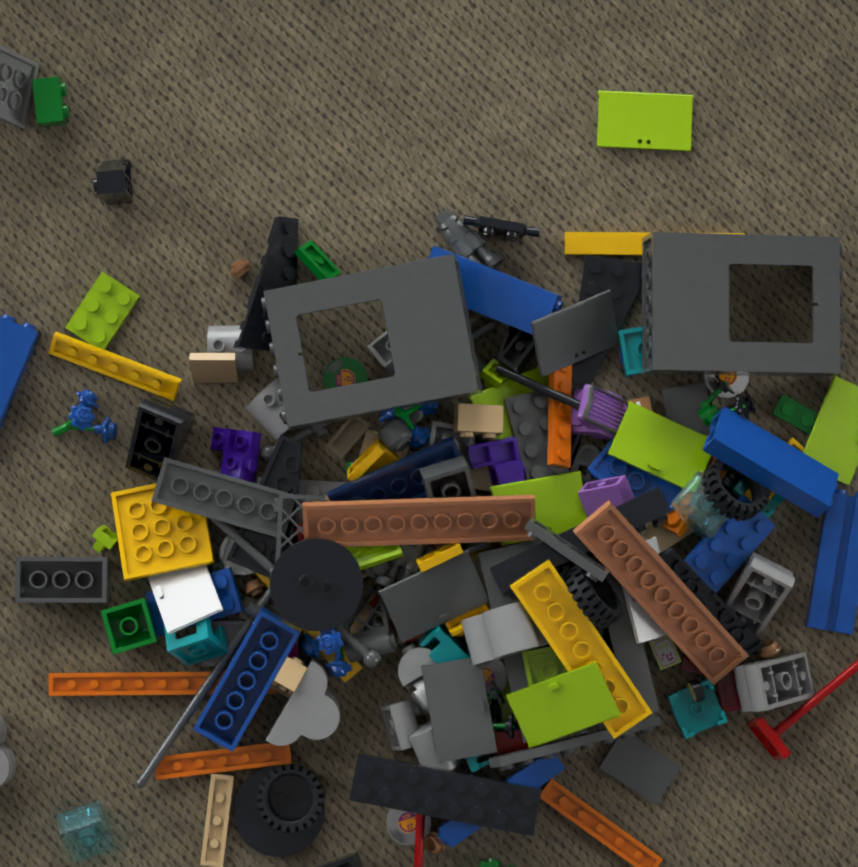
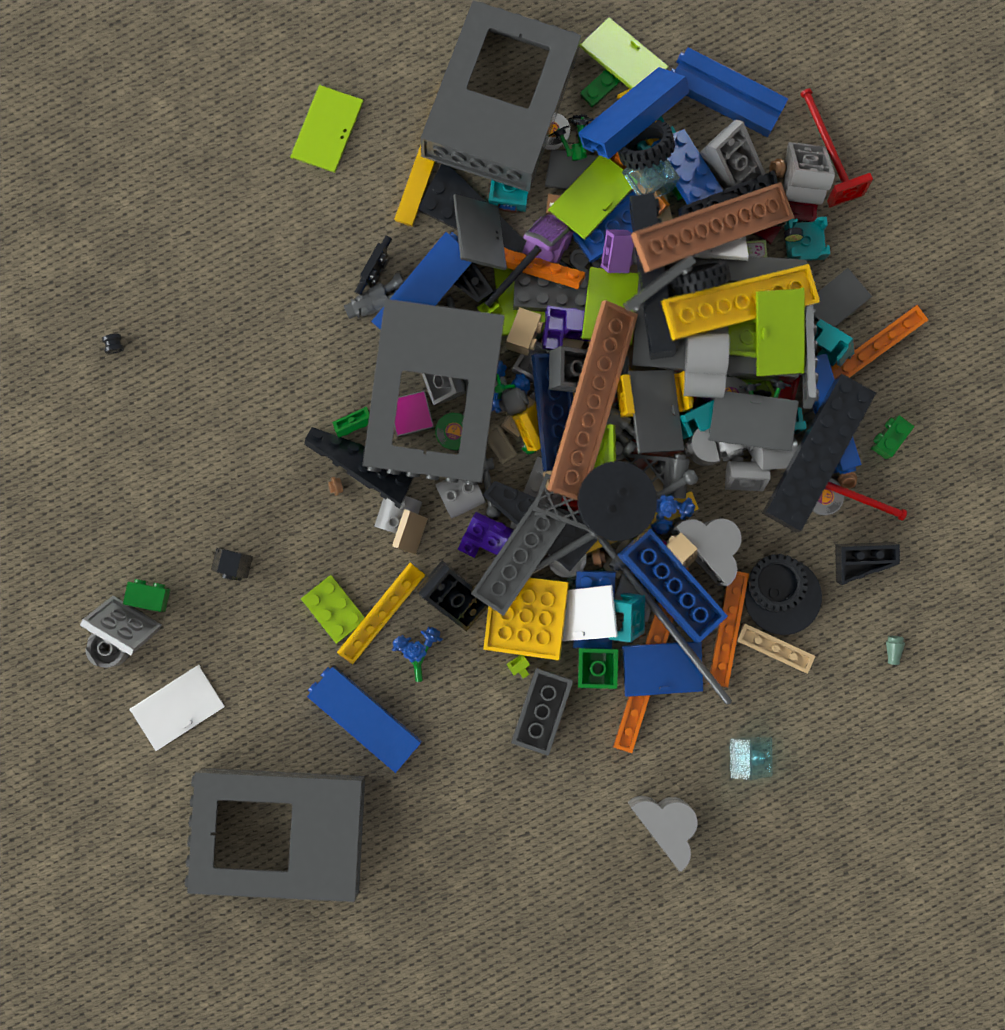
camera: 75 degrees left, 0 degrees up
(155, 696) = (660, 666): none -> blue container
(349, 326) = (413, 414): none -> dark pink tile
(580, 773) = (834, 343): none -> teal panel

